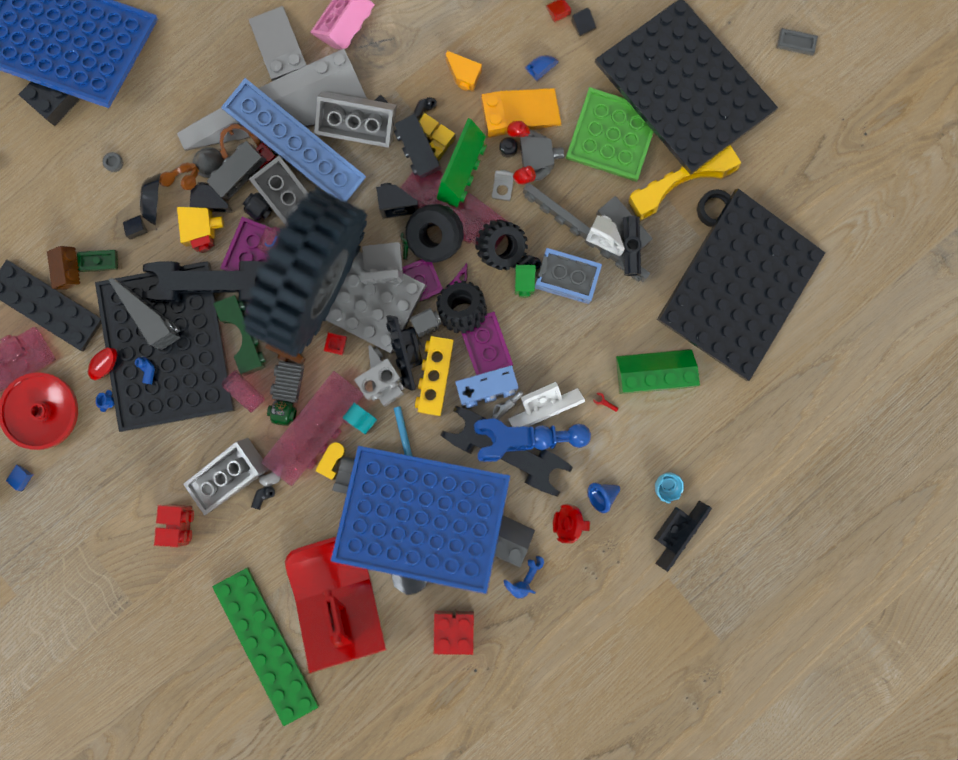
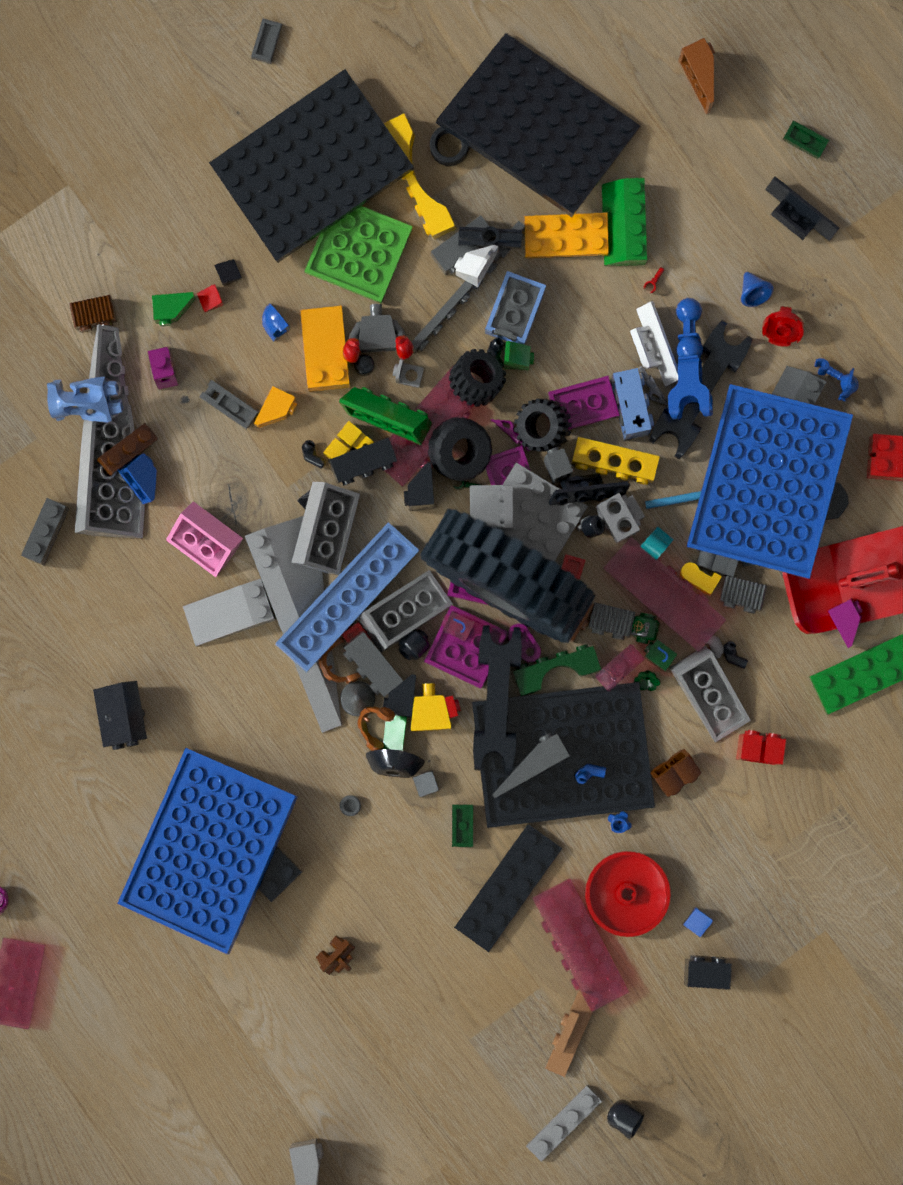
camera: 85 degrees left, 0 degrees up
(63, 267) = (469, 860): reddish brown brick -> none
(102, 363) = (579, 822): red arm -> none
(150, 448) = (676, 773): none -> reddish brown brick
(173, 196) = (395, 733): none -> slope
(235, 418) = (647, 680): none -> dark green plant
(258, 427) = (659, 655): none -> dark green brick
(298, 599) = (847, 620): none -> magenta slope
(318, 501) = (742, 594): none -> dark grey brick
(369, 356) = (592, 526): none -> black piece
(463, 31) = (229, 405): none -> dark grey plate
(639, 319) = (566, 236): none -> light orange plate
(669, 487) = (749, 219): medium azure hair -> none
(749, 535) = (805, 140): none -> dark green plate
(814, 428) = (698, 66): none -> dark orange slope

